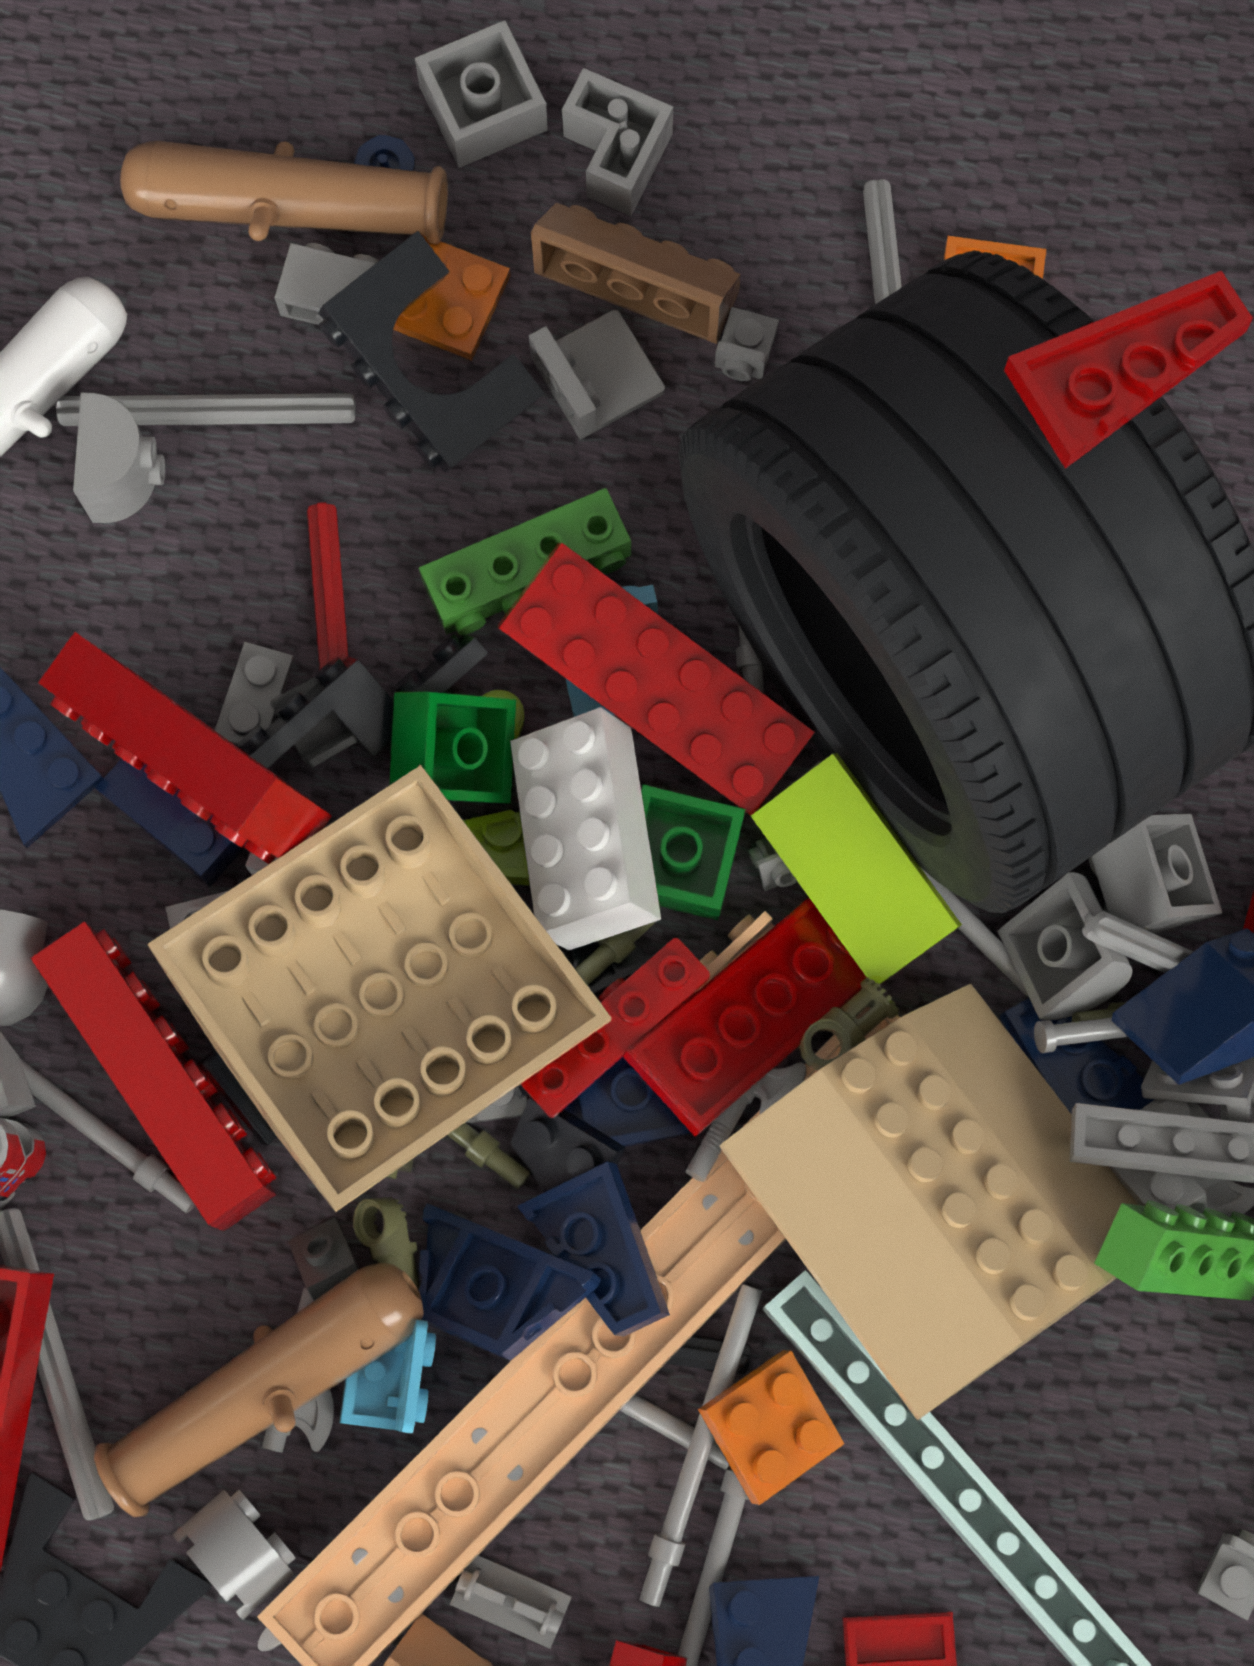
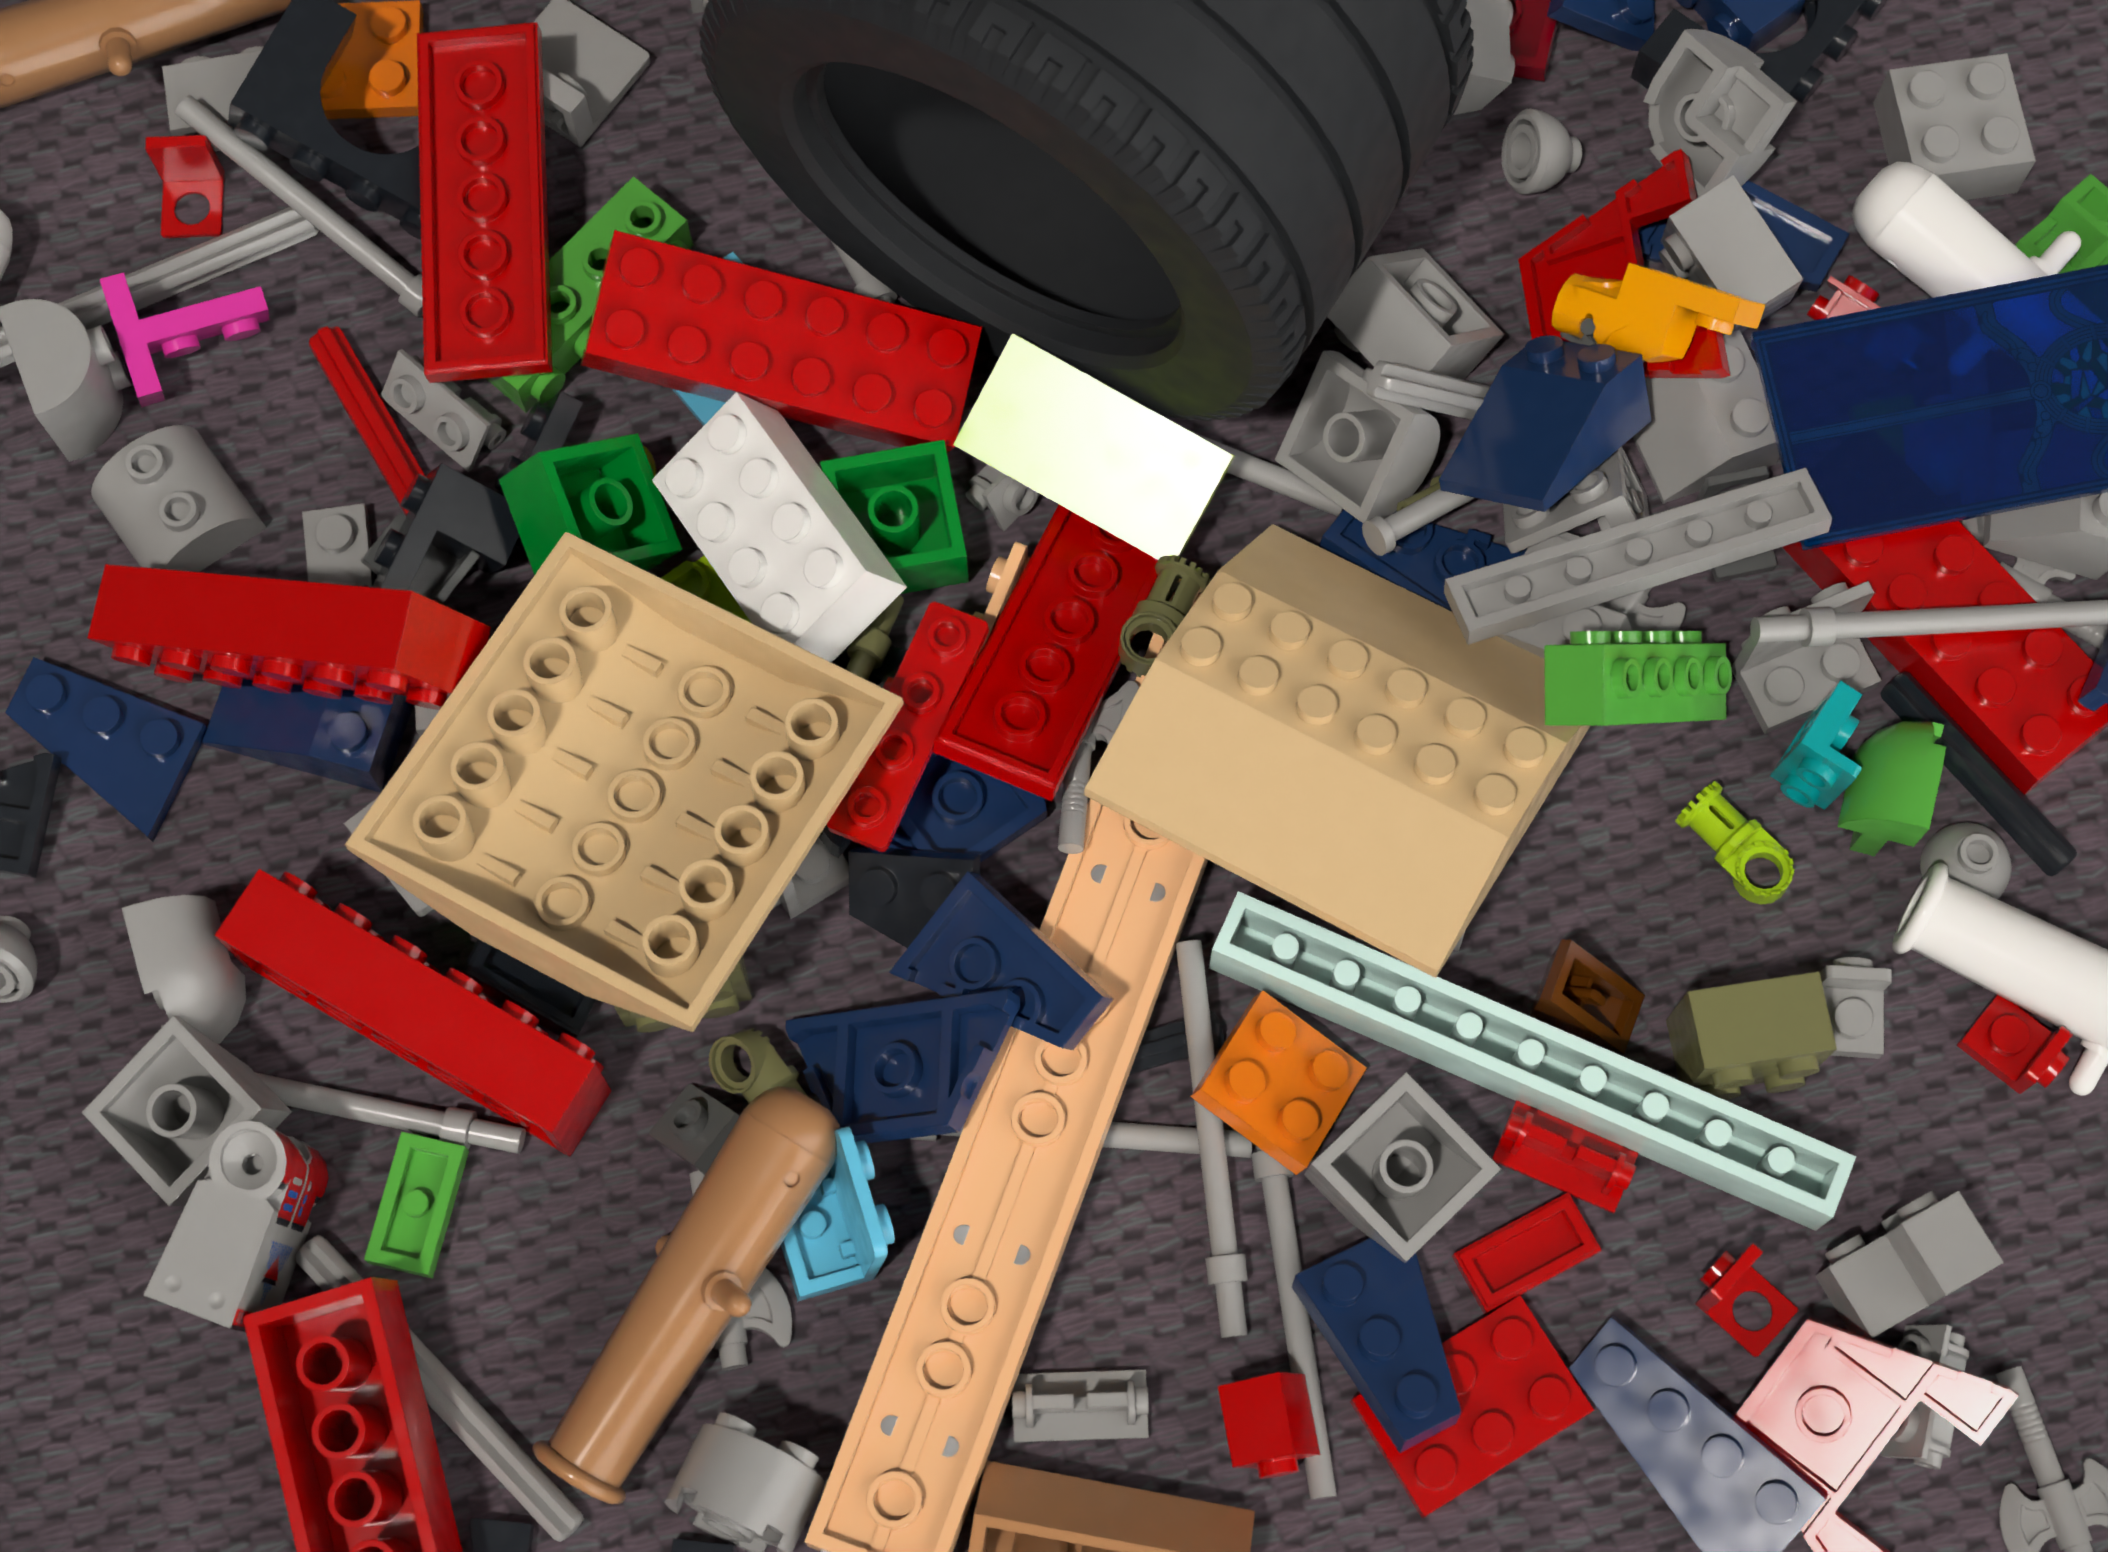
camera: 25 degrees left, 5 degrees down
(95, 1218) = (416, 1205): none -> bright green plate
(153, 594) = (173, 501): none -> light grey brick
(208, 459) = (177, 330): none -> dark pink bracket
(275, 329) = (187, 168): none -> red bracket
(374, 590) = (439, 412): none -> light grey hinge
(405, 504) = (305, 203): none -> light grey bar
(481, 462) = (483, 203): none -> red tile
(484, 1150) = (823, 935): olive bar -> none
(831, 1541) = (1402, 1169): none -> light grey slope
(964, 1583) = (1565, 1157): none -> red hinge
(1037, 1470) = (1587, 998): none -> reddish brown slope
(1148, 1562) = (1752, 1035): none -> olive brick
(1212, 1400) = (1736, 842): none -> lime connector

